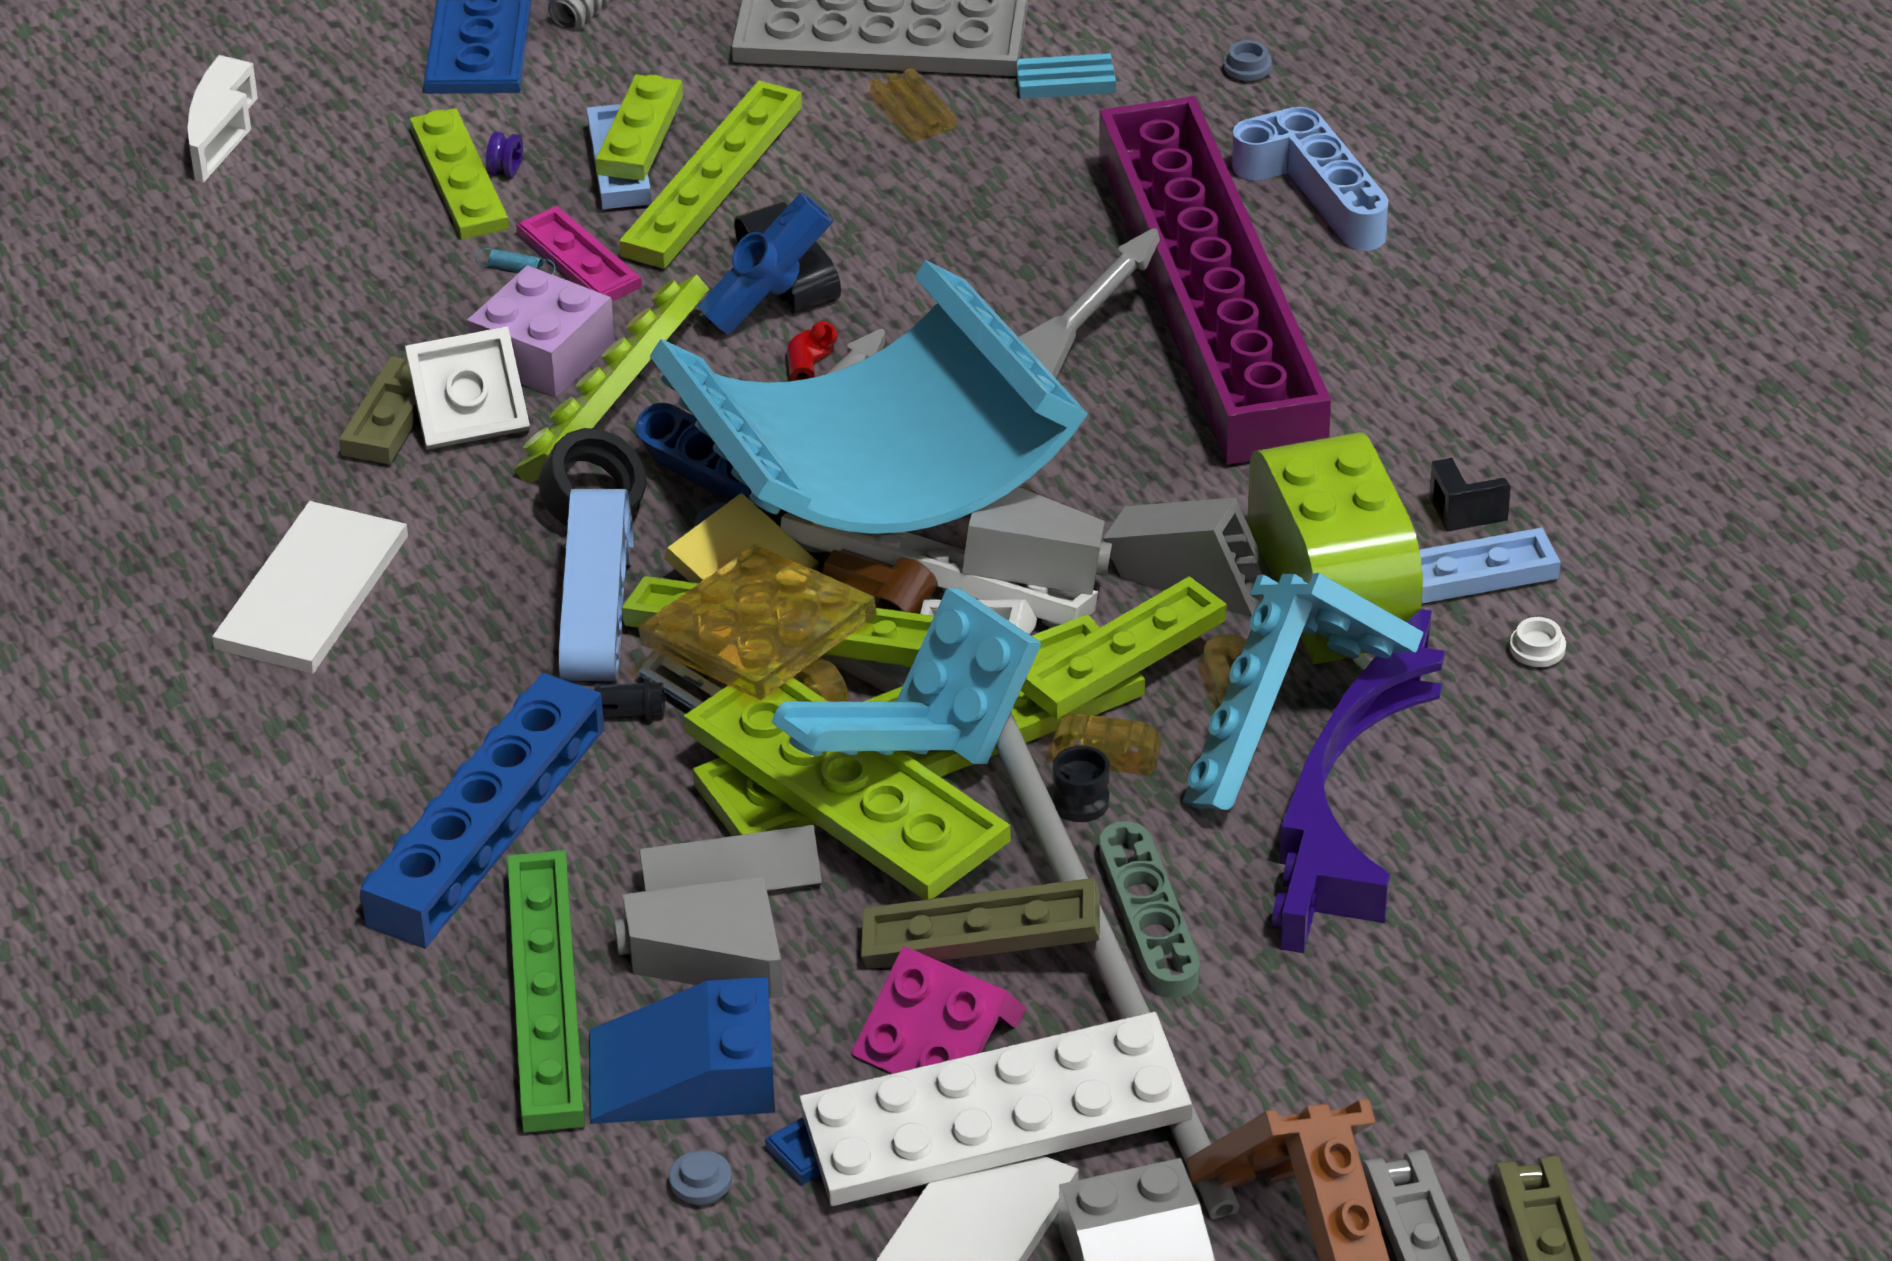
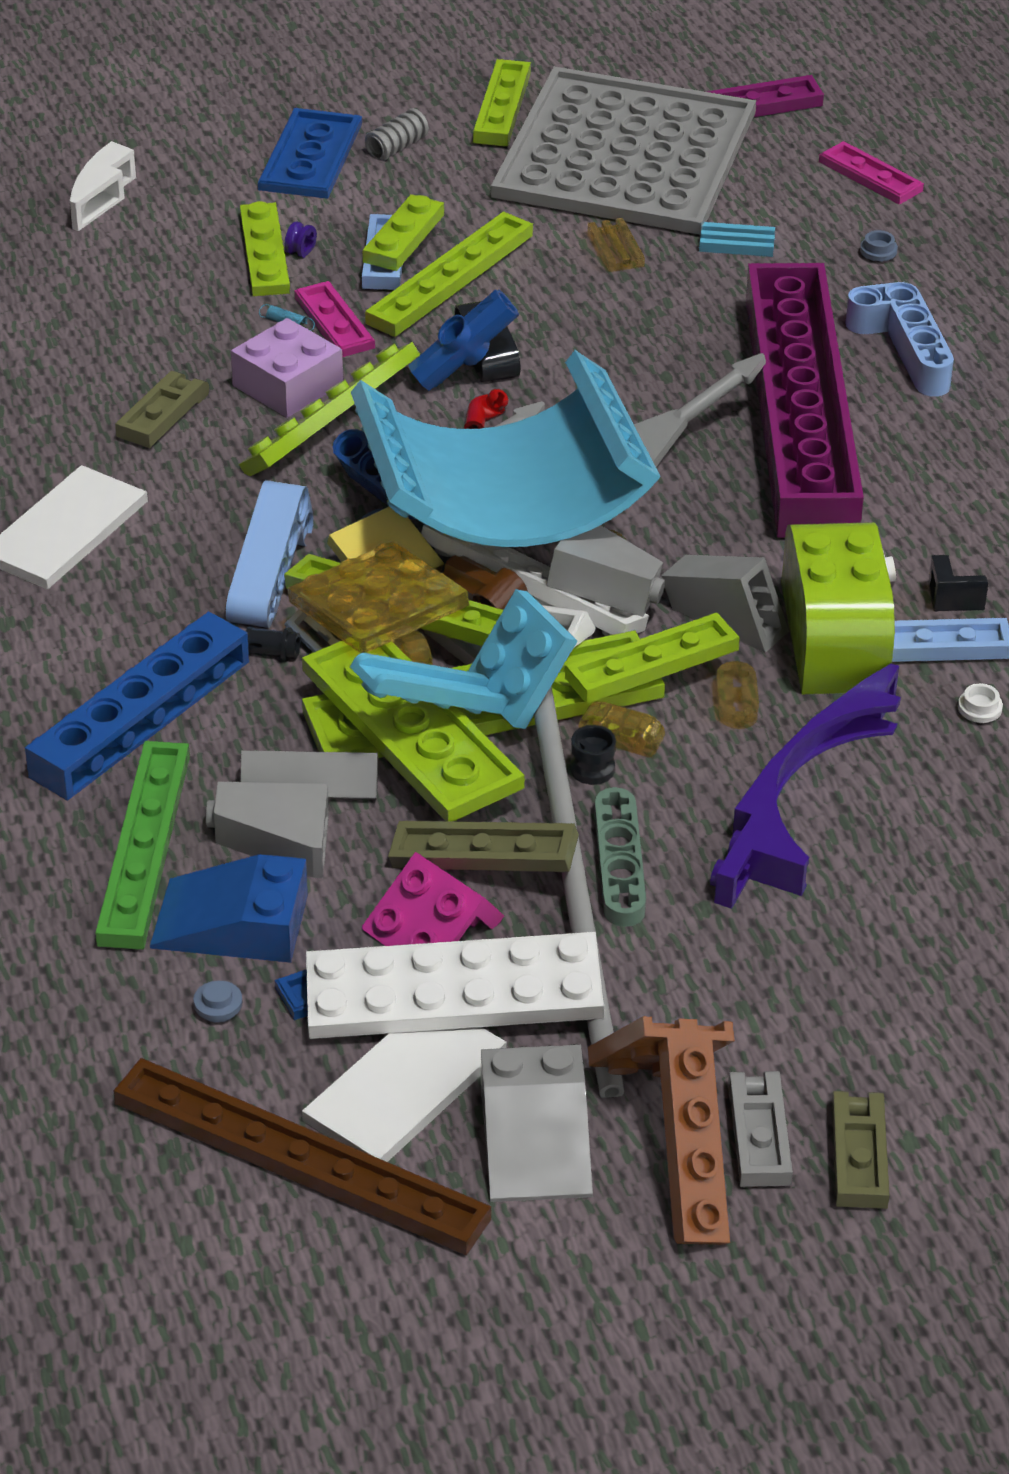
camera: 10 degrees right, 0 degrees up
(467, 388) = (218, 400): white plate -> none
(599, 449) = (302, 457): black tyre -> none
(1258, 672) = (776, 643): medium azure bracket -> none

